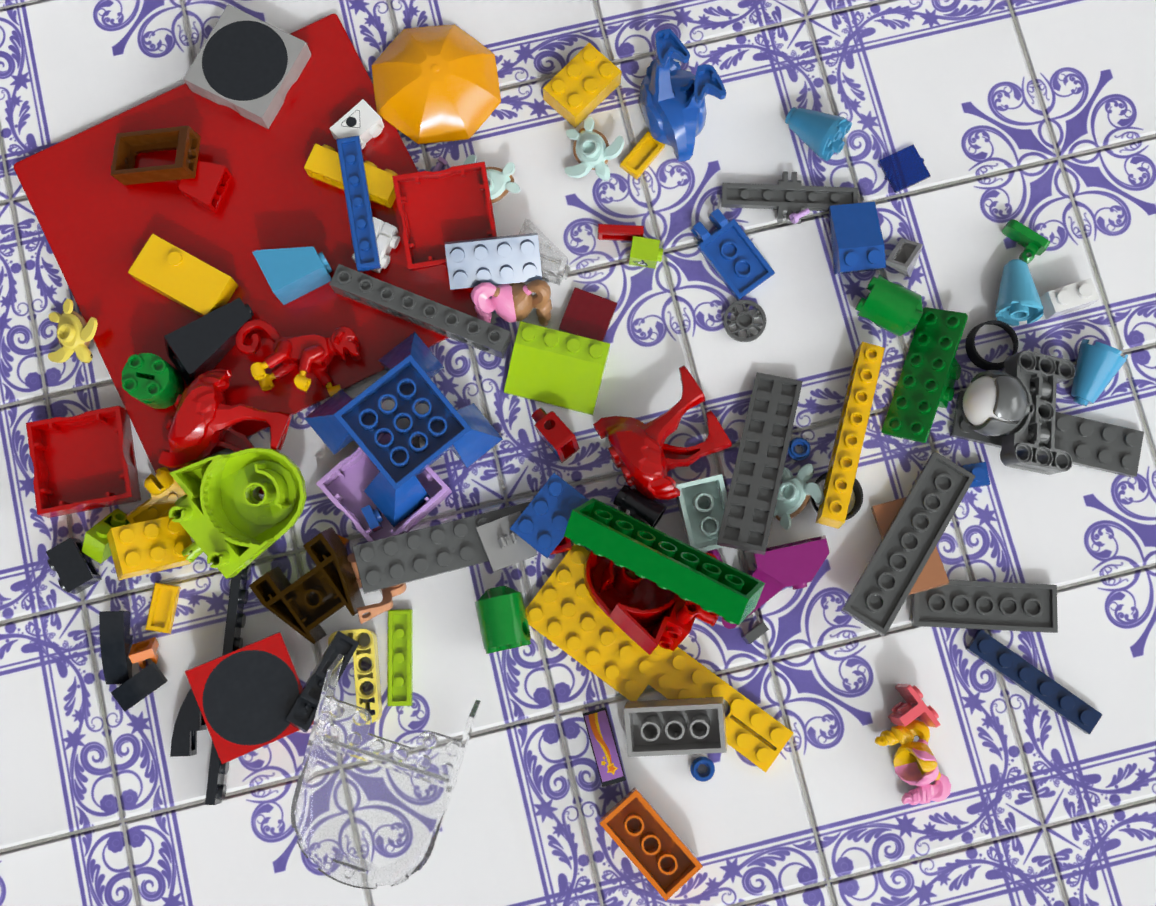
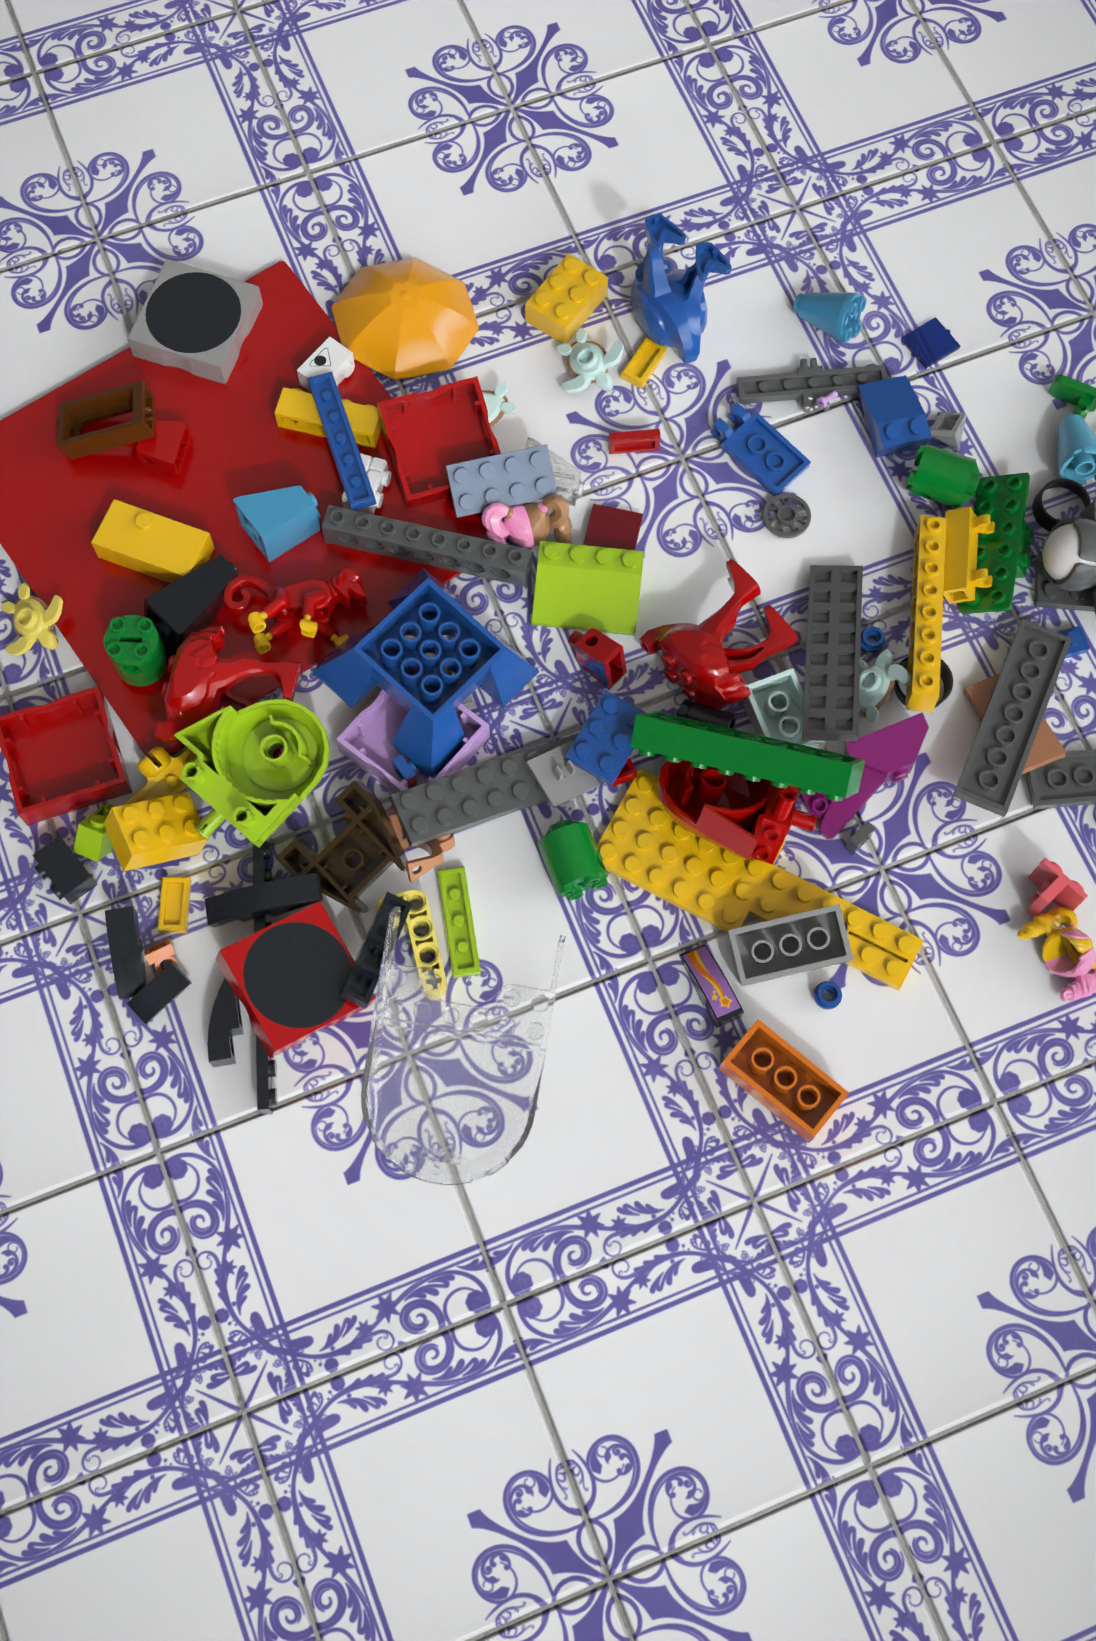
camera: 10 degrees left, 10 degrees down
(233, 622) = (263, 898): none -> black slope
(645, 252) = (665, 458): lime brick -> none
(892, 382) = (961, 554): none -> yellow brick

